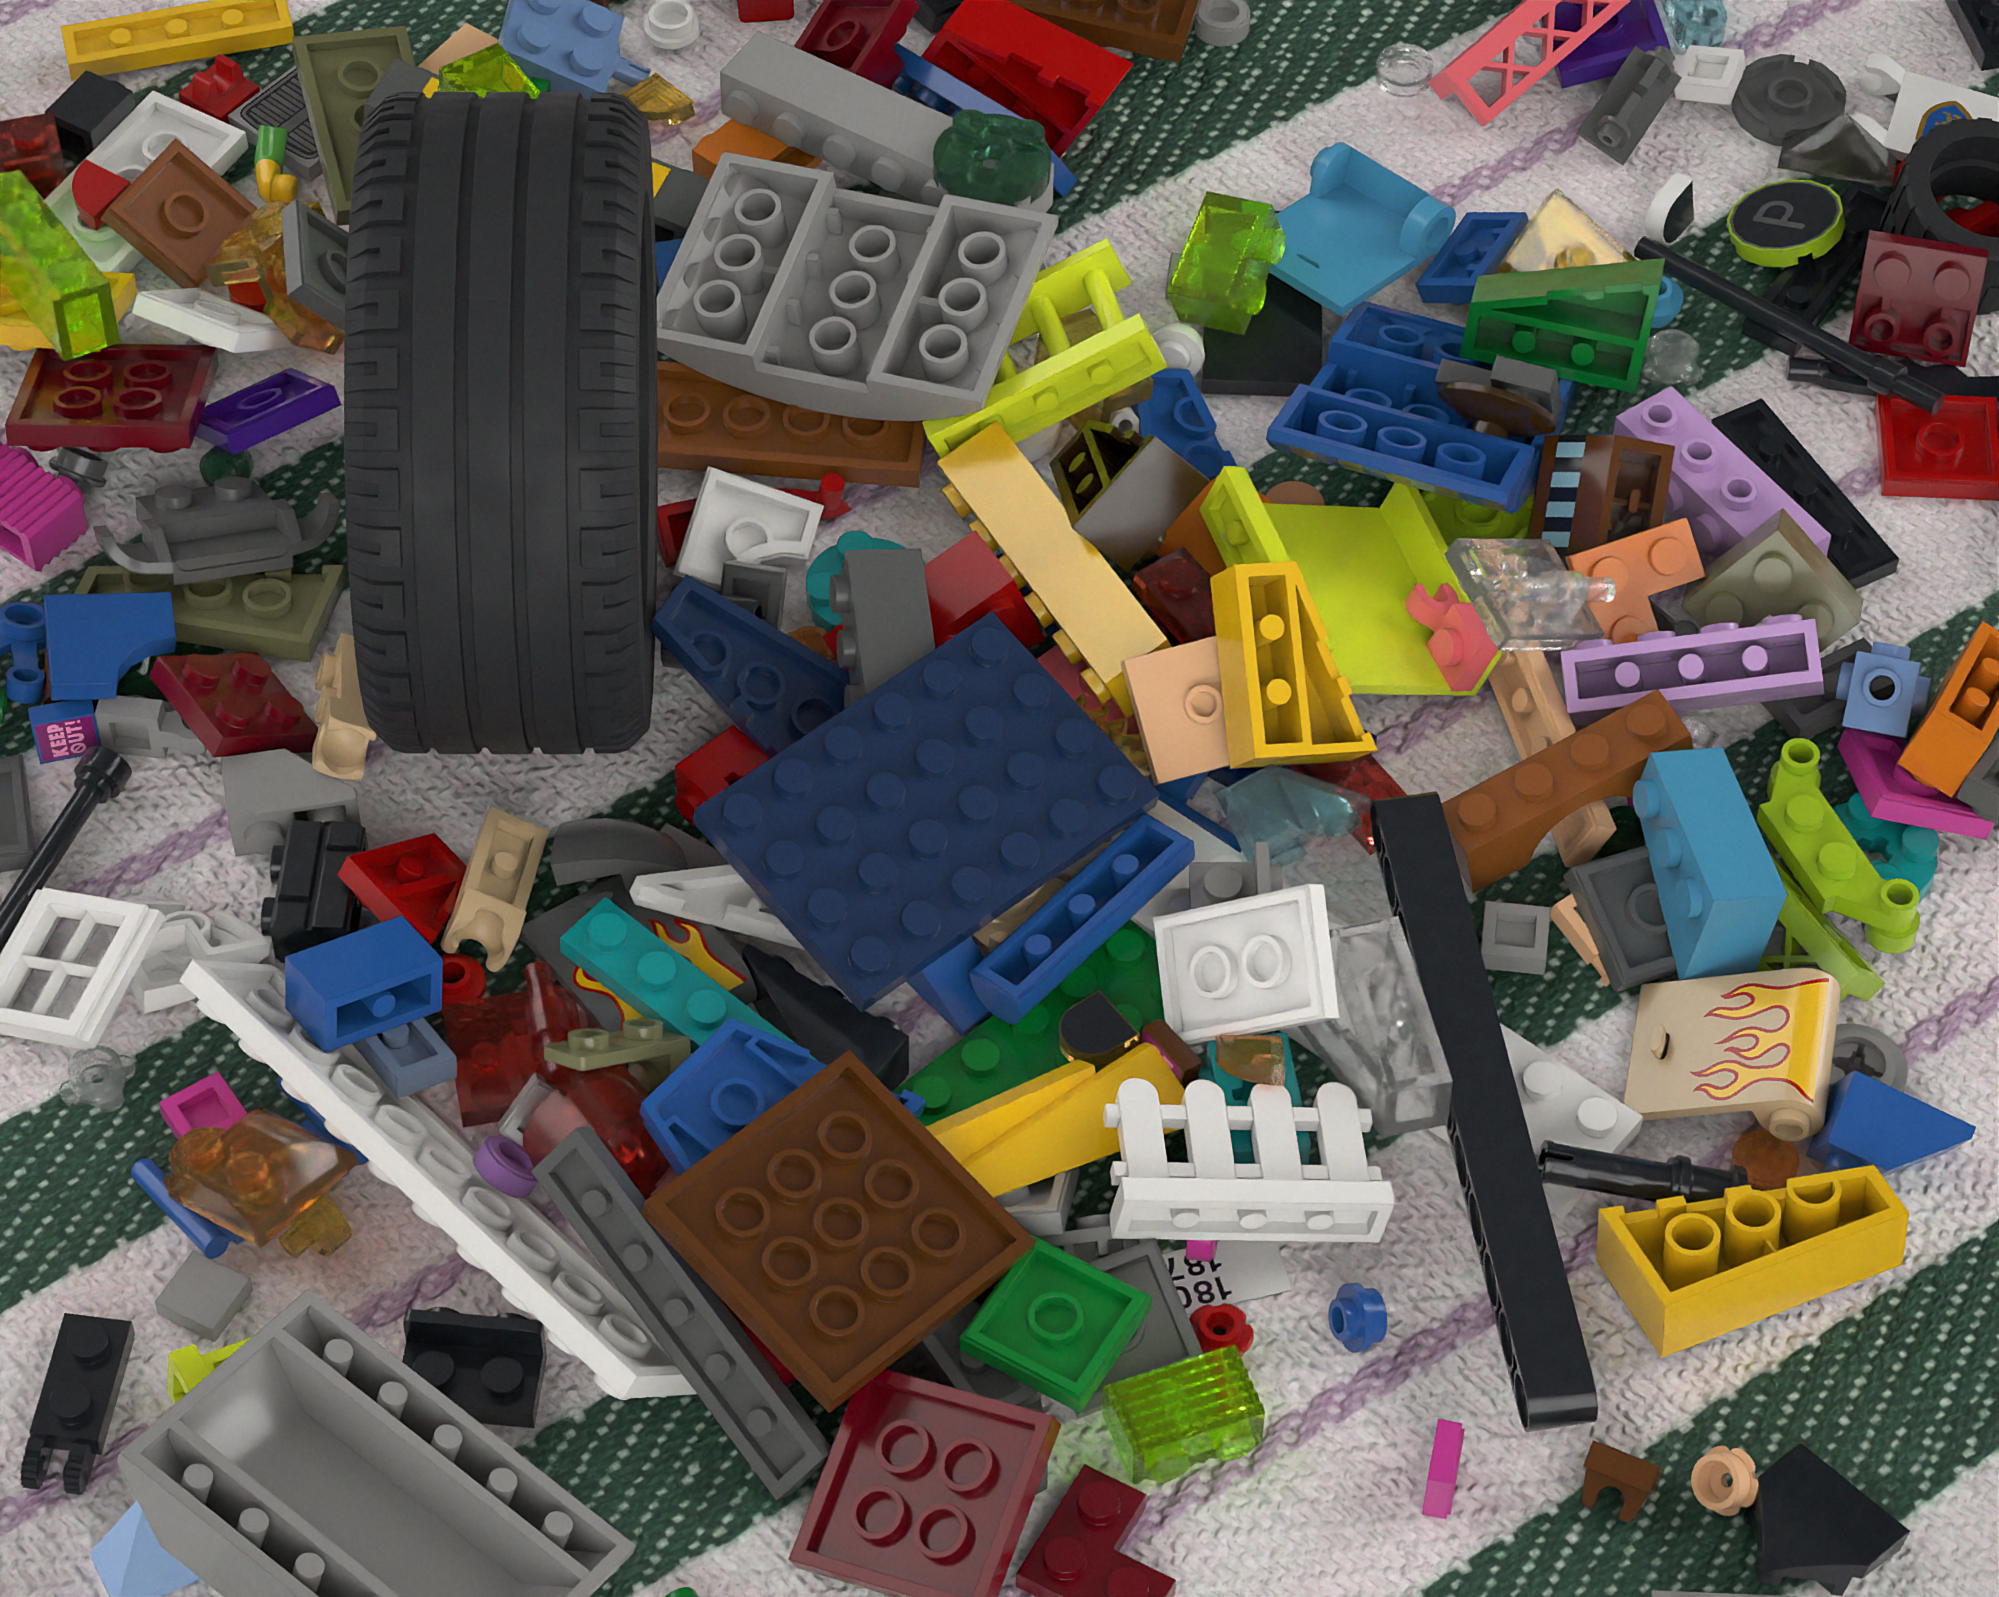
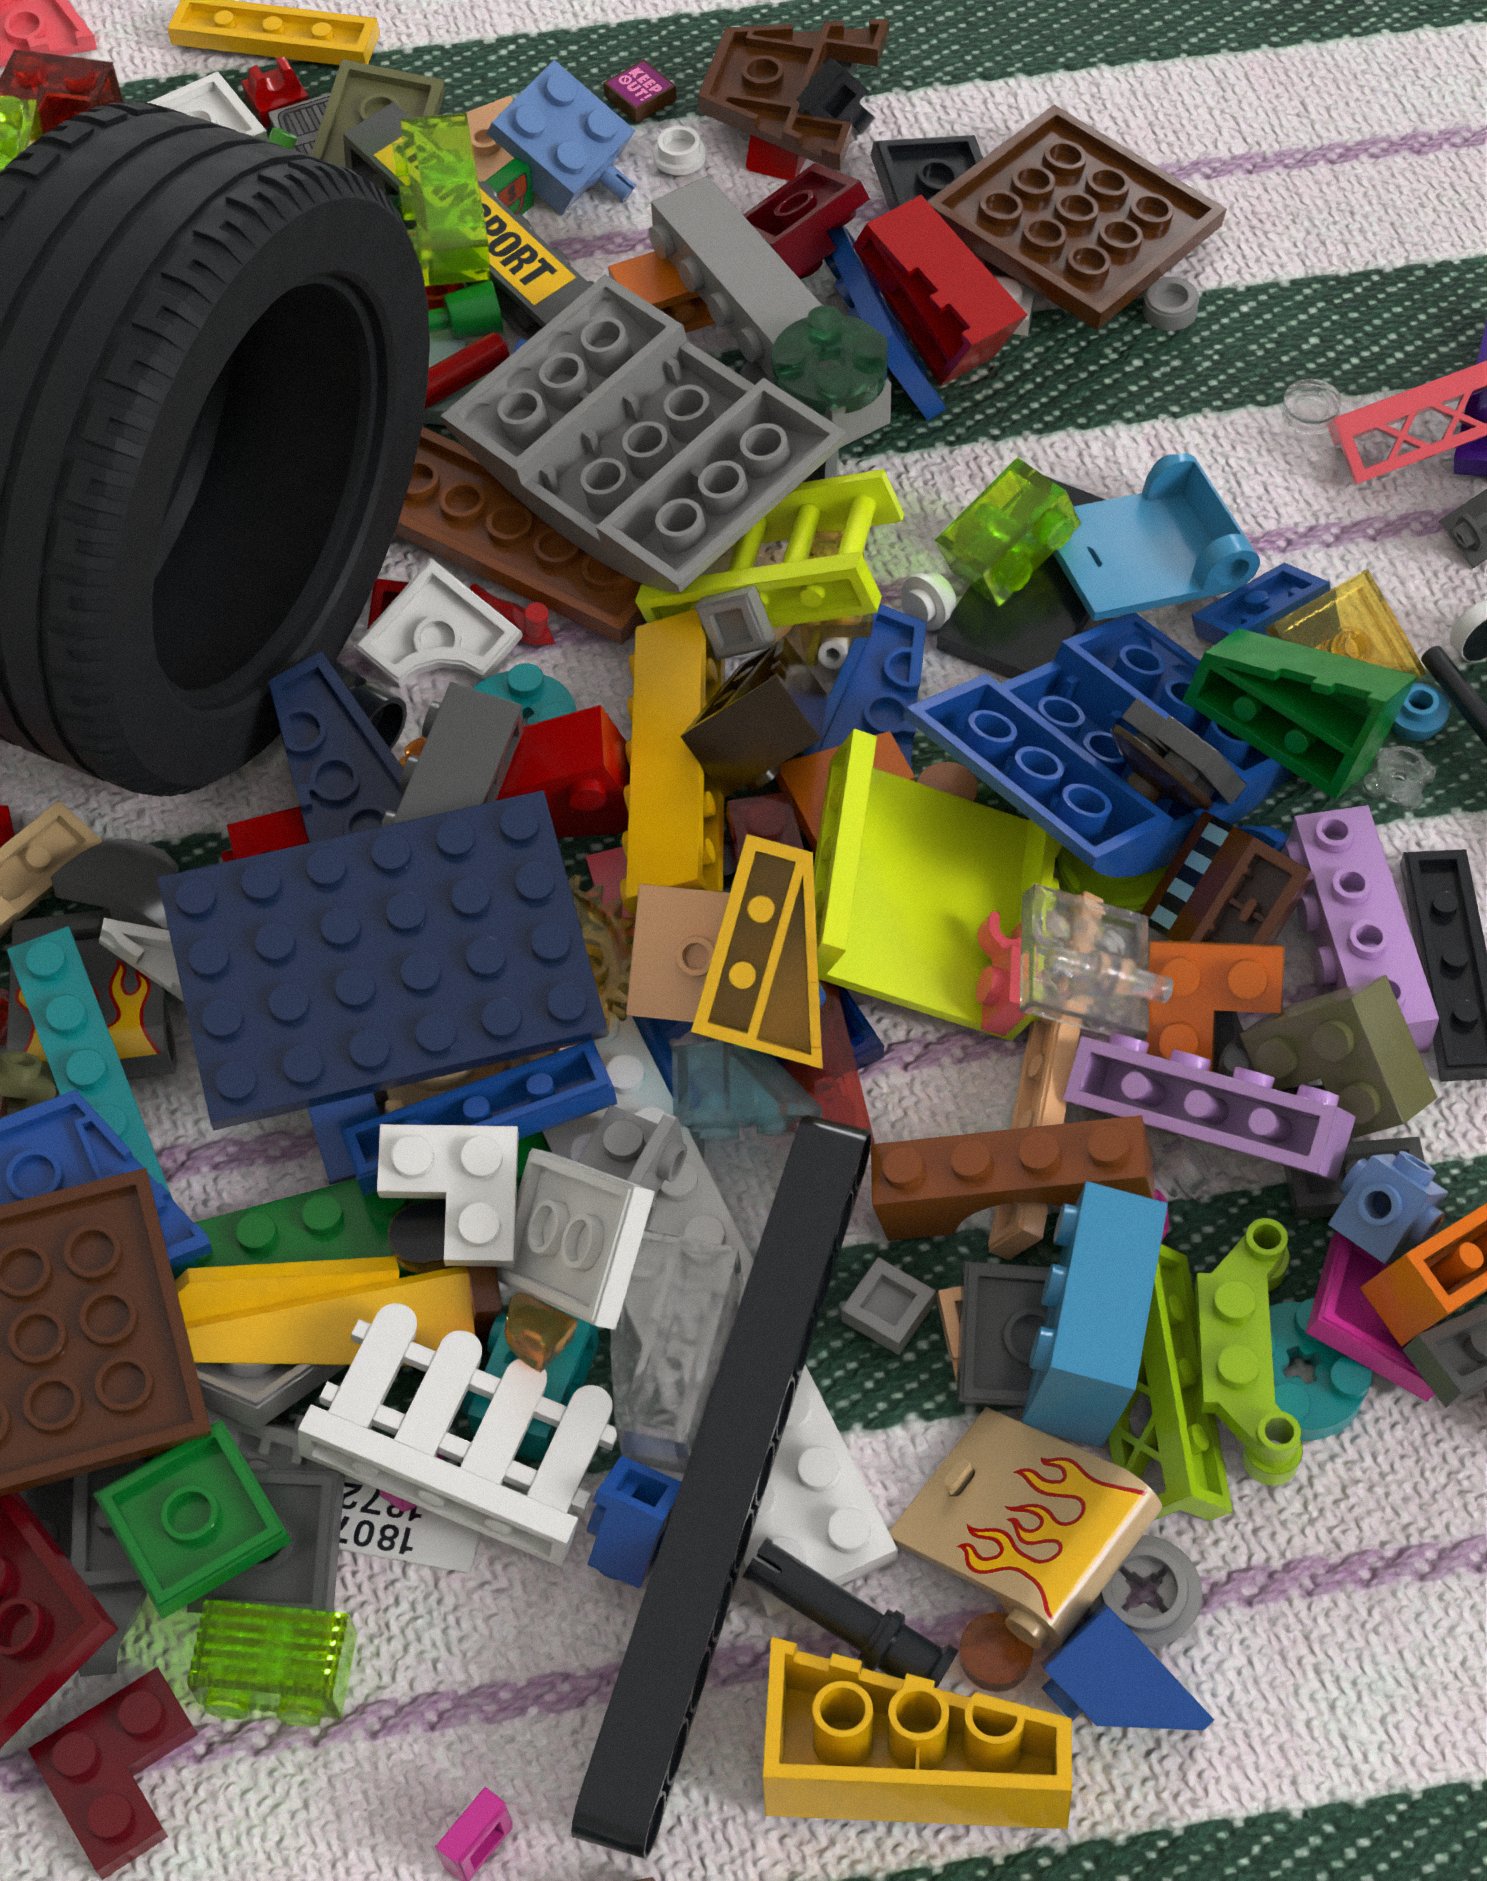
camera: 30 degrees right, 5 degrees up
(89, 114) = (154, 71): black brick -> none
(661, 100) = (621, 214): clear yellow tile -> none
(759, 583) = (414, 684): dark grey tile -> none
(825, 1019) = (204, 1168): black slope -> none
(1038, 422) = (735, 622): none -> light grey tile
(1114, 953) = (469, 1169): none -> white plate
(1224, 1316) = (378, 1602): red plate -> none
(1358, 1317) = (496, 1634): blue plate -> none
(1423, 1180) = (630, 1520): none -> blue brick

